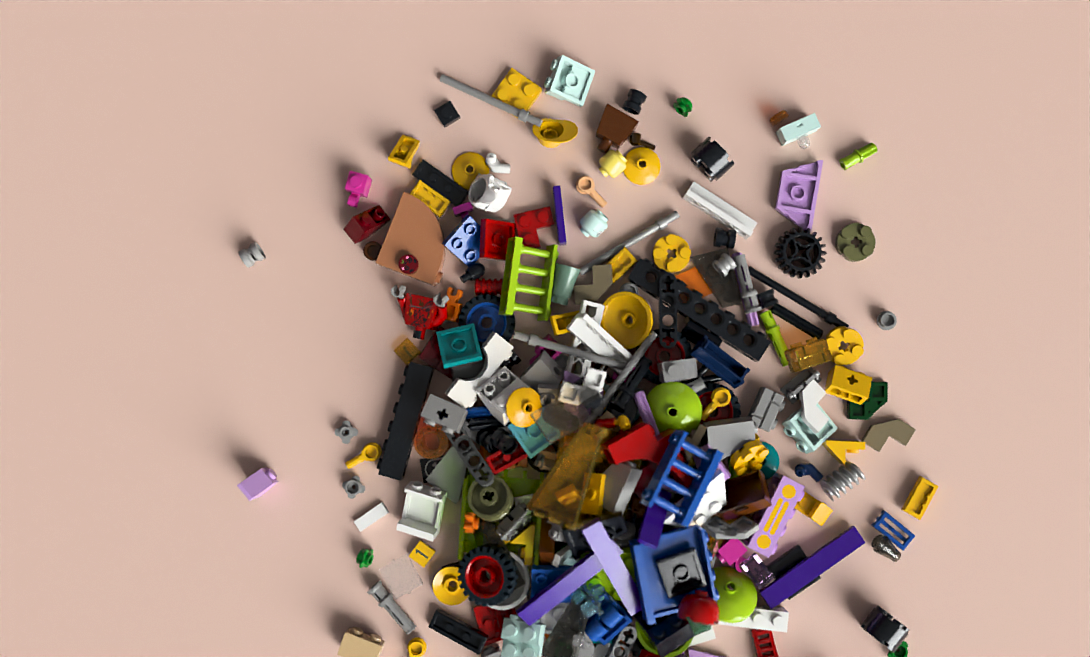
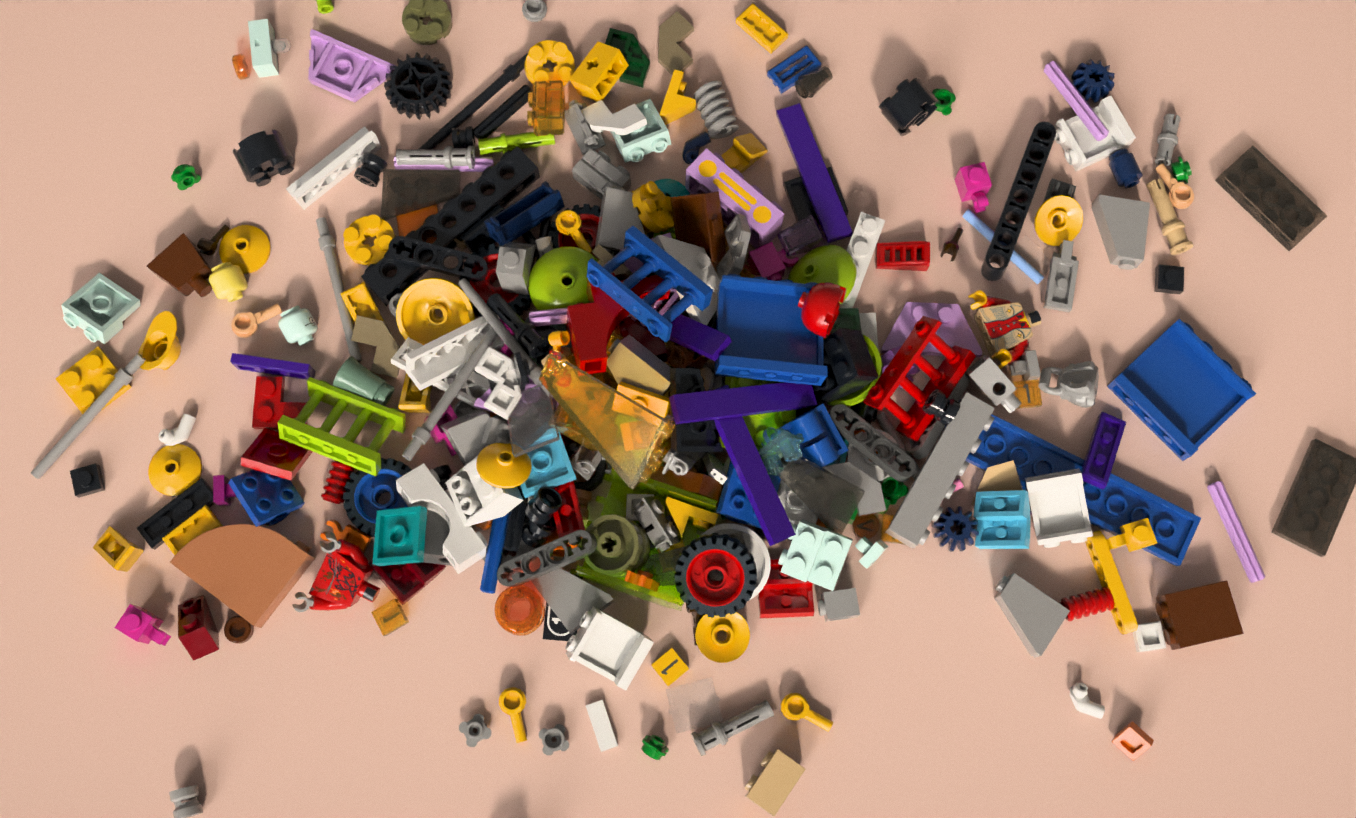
camera: 80 degrees left, 10 degrees down
(406, 421) = (483, 641): black brick -> none
(408, 264) = (269, 579): dark red tile -> none
(437, 405) = (471, 584): light grey brick -> none
(458, 631) = (786, 642): black tile -> none
(473, 272) = (311, 499): black cylinder -> none
(490, 192) = (210, 448): white piece -> none
(579, 640) = (831, 473): clear hand -> none
(634, 102) = (155, 232): black wheel -> none
(681, 572) = (772, 320): tile -> none
(724, 264) = (402, 176): light grey wheel -> none

